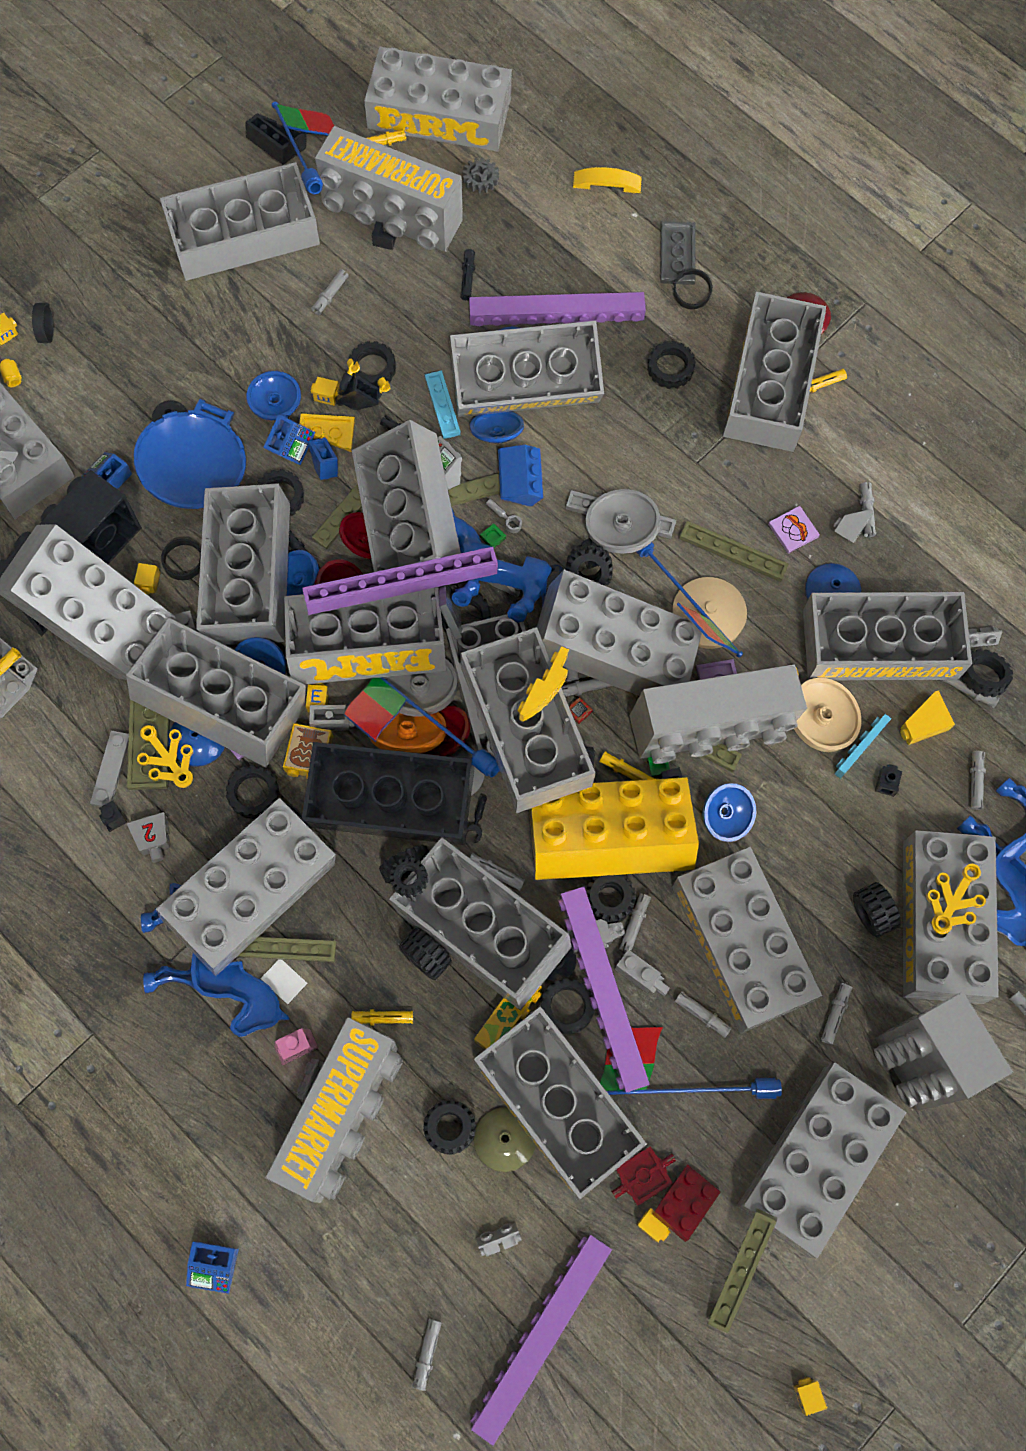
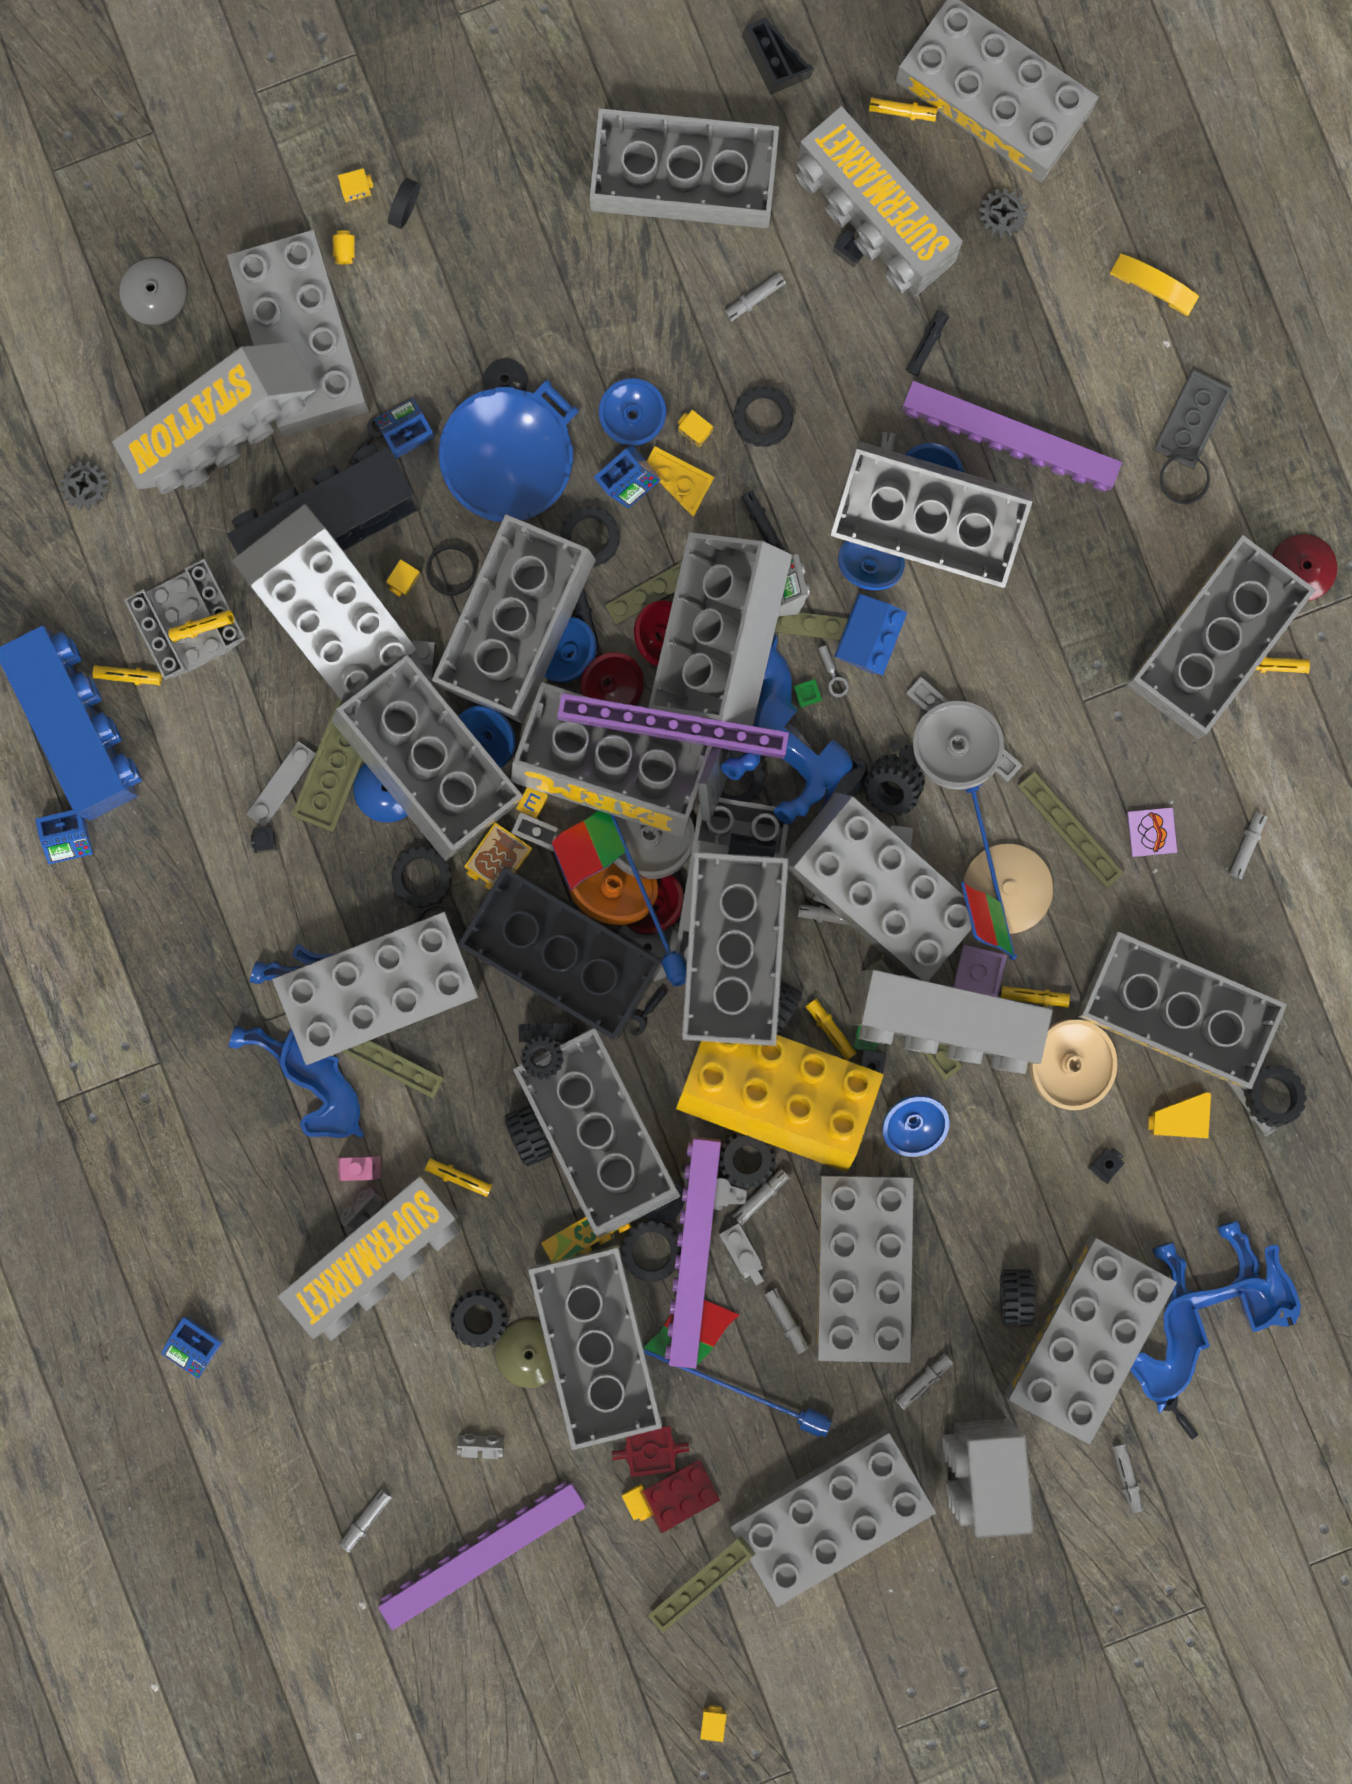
camera: 25 degrees right, 15 degrees up
(151, 835) = (297, 880): light grey torso -> none
(167, 759) = (346, 803): yellow plant -> none
(284, 981) = (373, 1094): white sticker -> none
(307, 122) = (824, 51): flag -> none
(323, 458) = (657, 515): blue slope -> none
(358, 392) = (731, 453): black torso -> none
(442, 404) = (822, 503): medium azure plate -> none
(498, 872) = (641, 1078): light grey pin -> none
(544, 691) = (758, 937): yellow slope -> none
(580, 710) = (810, 939): tile -> none
(678, 350) = (1114, 543): black tyre -> none
(824, 576) = (1149, 908): blue dish -> none
(852, 524) = (1218, 859): light grey slope -> none
(866, 739) = (1088, 1118): medium azure plate -> none
(953, 901) = (1091, 1332): yellow plant -> none
(977, 784) = (1204, 1205): light grey pin -> none
(985, 636) = (1304, 1054): light grey hinge -> none

